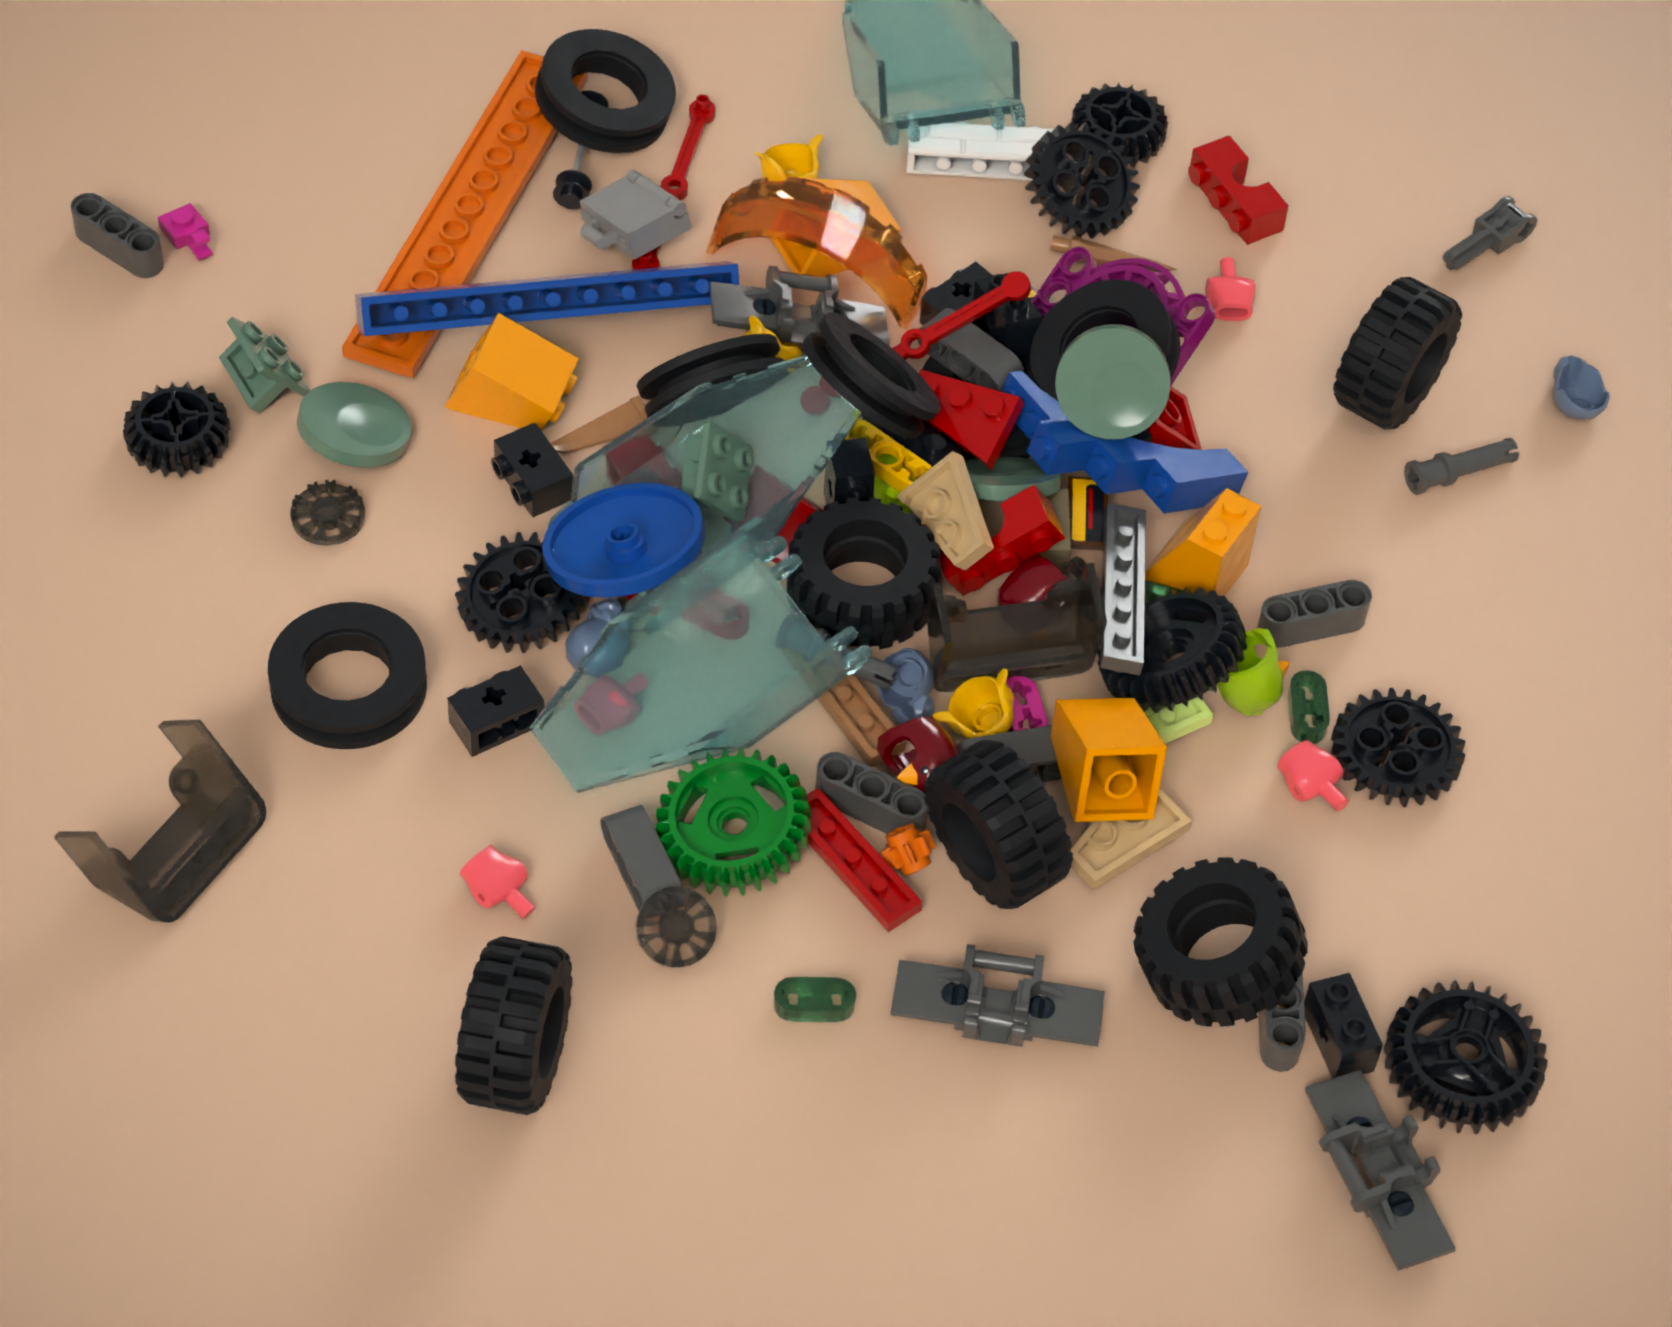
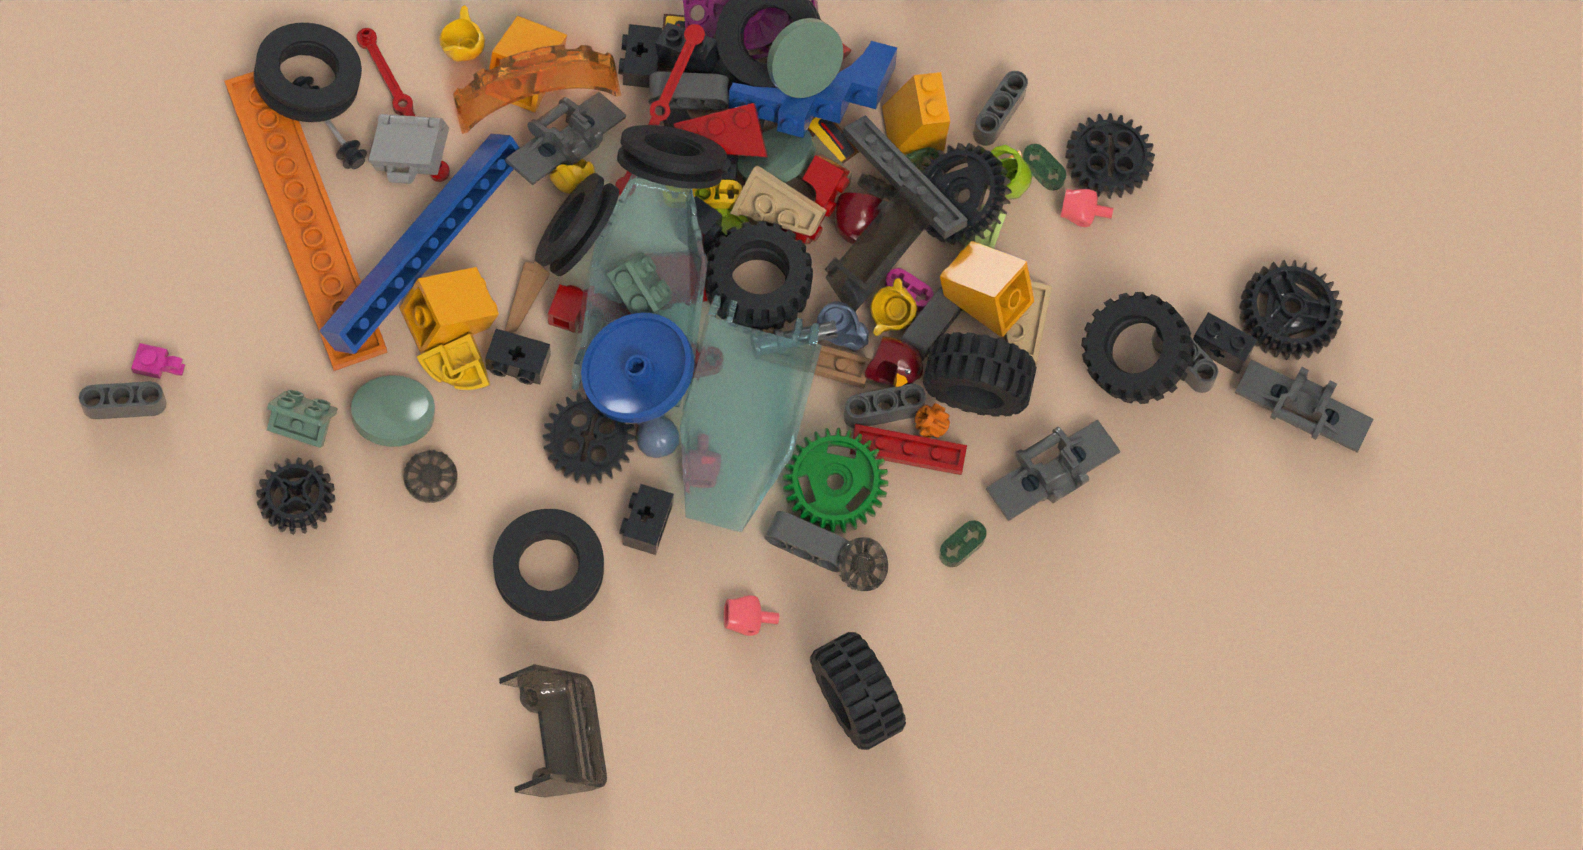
camera: 45 degrees left, 15 degrees up
(467, 434) = (456, 364): none -> yellow brick

